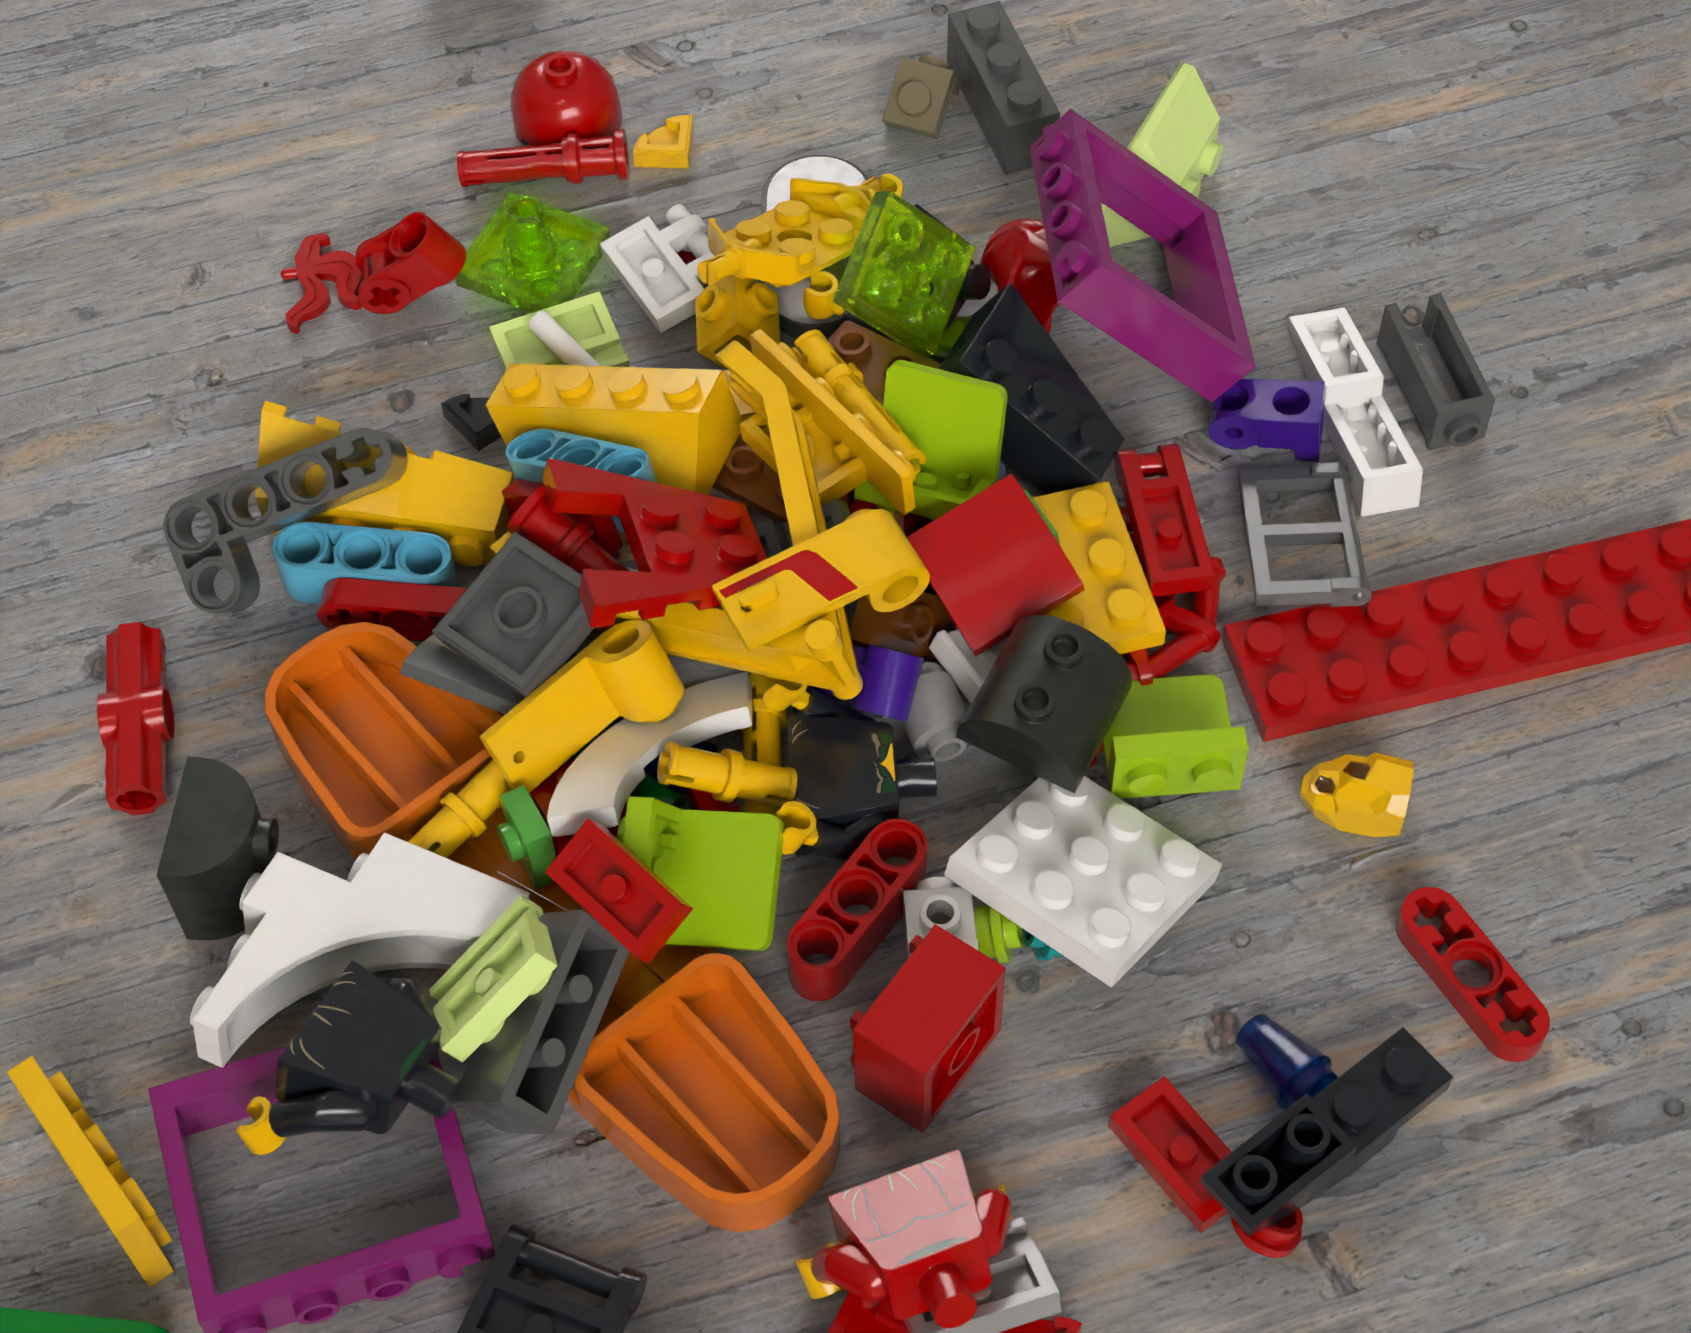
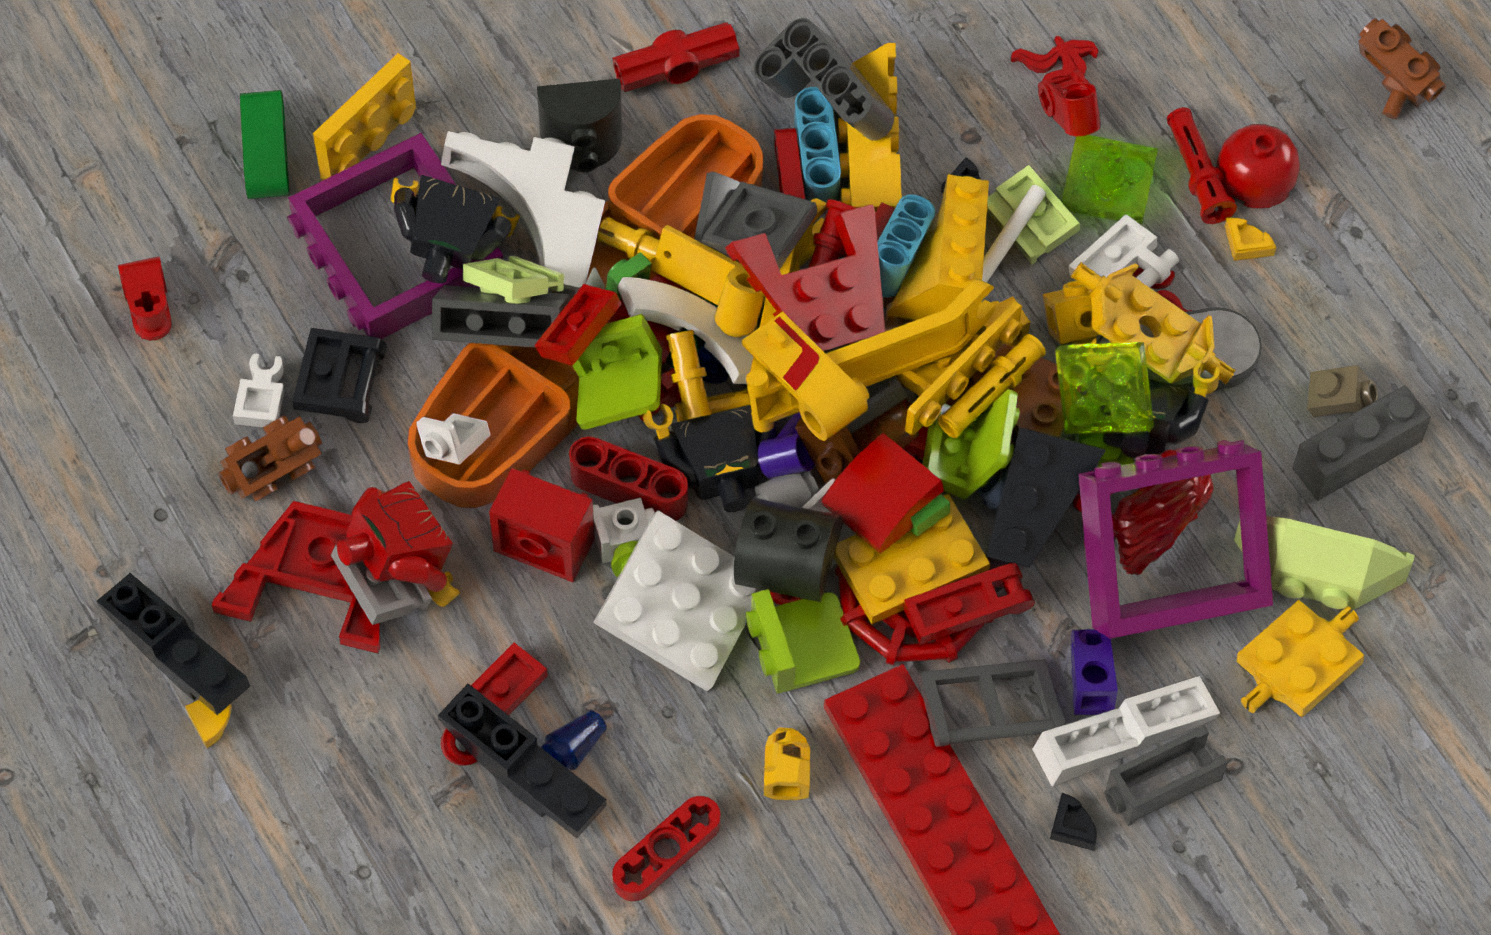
camera: 75 degrees right, 5 degrees up
(750, 1126) = (453, 438): none -> white bracket
(1284, 215) = (1299, 658): none -> yellow plate
(1480, 490) = (1073, 824): none -> black tile

